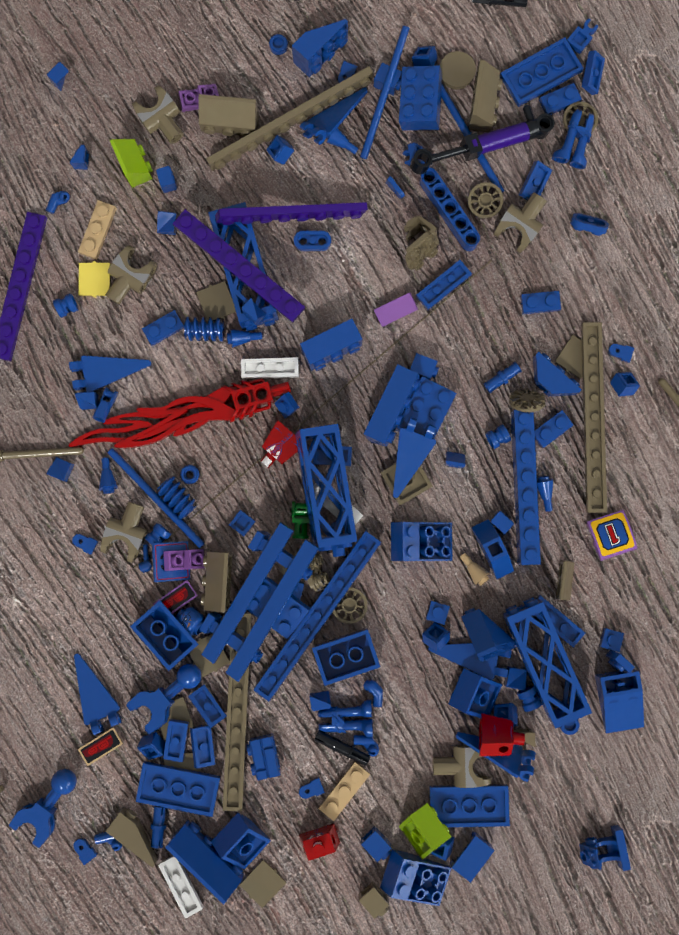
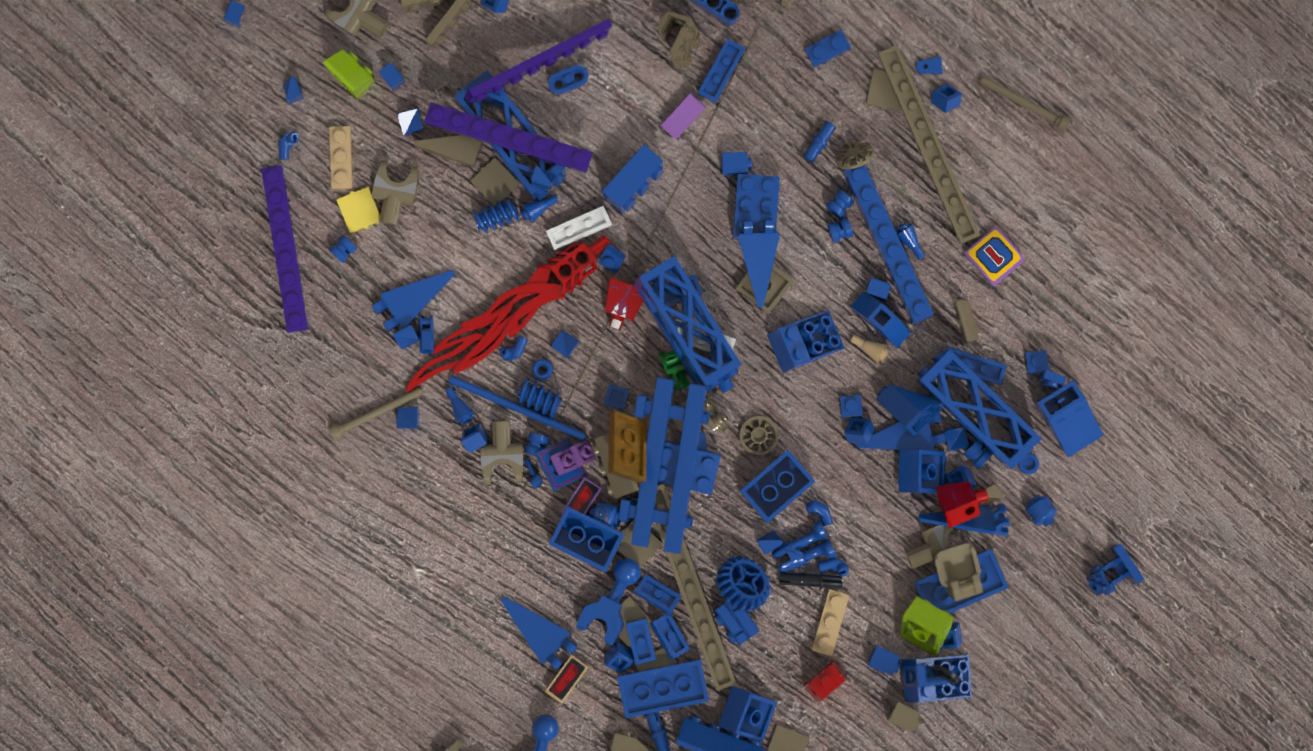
camera: 25 degrees left, 0 degrees up
(88, 544) = (467, 483): blue piece -> none
(108, 508) = (474, 438): none -> blue slope
(163, 328) = (452, 231): blue plate -> none
(173, 450) = (515, 351): none -> blue arm
(193, 258) = (455, 148): none -> dark tan slope
(217, 461) = (565, 344): none -> blue slope
(229, 572) = (627, 447): none -> pearl gold plate
(282, 716) = (743, 583): none -> blue gear
(315, 788) = (800, 631): blue piece -> none
(317, 616) = (731, 458): blue plate -> none
(392, 406) = (720, 216): blue slope -> none
(397, 879) = (916, 676): none -> blue piece
(455, 460) = (805, 245): blue slope -> none
(472, 797) = (959, 571): none -> dark tan piece
(473, 857) = (984, 633): blue panel -> none
(489, 459) = (840, 230): none -> blue wheel
(552, 378) = (870, 122): blue slope -> none
(552, 429) = (891, 173): blue plate -> none
(564, 770) = (1041, 510): none -> blue head

